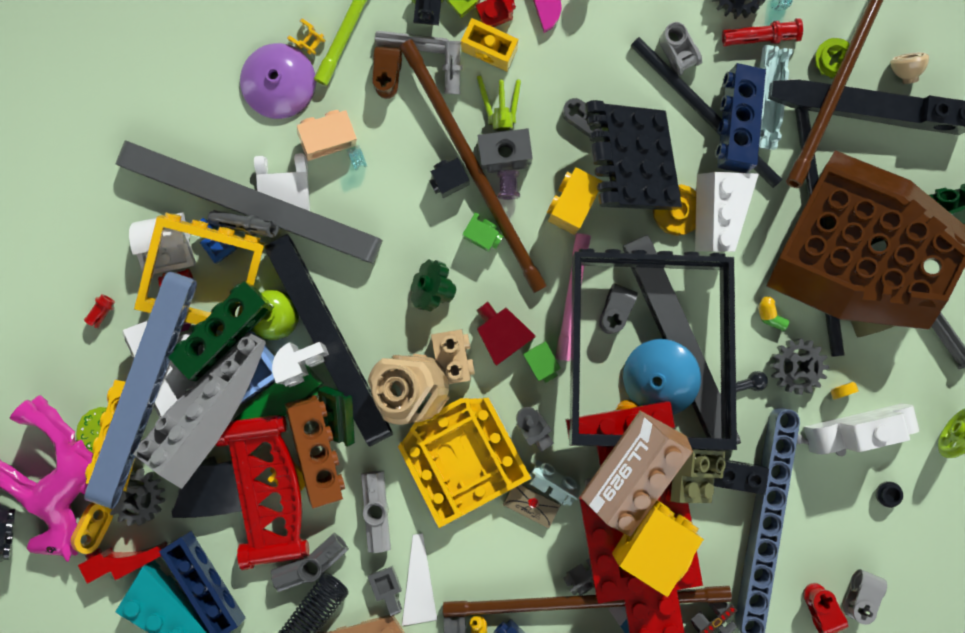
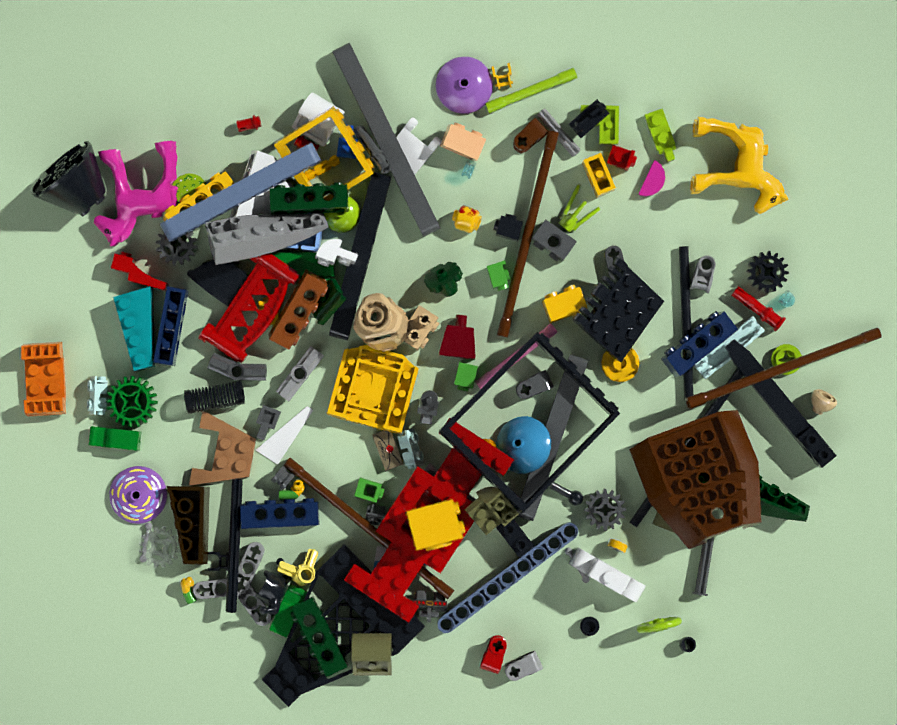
camera: 45 degrees right, 0 degrees up
(92, 528) = (138, 240): yellow plate -> none
(211, 287) = (322, 167): none -> yellow axle
(400, 207) = (467, 219): none -> yellow head
(452, 67) = (567, 168): light grey pin -> none
(508, 184) = (538, 262): clear purple bush -> none
(551, 572) = (361, 490): none -> bright green brick
(636, 472) = (459, 474): medium nougat slope -> none
(722, 209) = (642, 383): white wedge -> none
(769, 314) = (615, 467): arm -> none

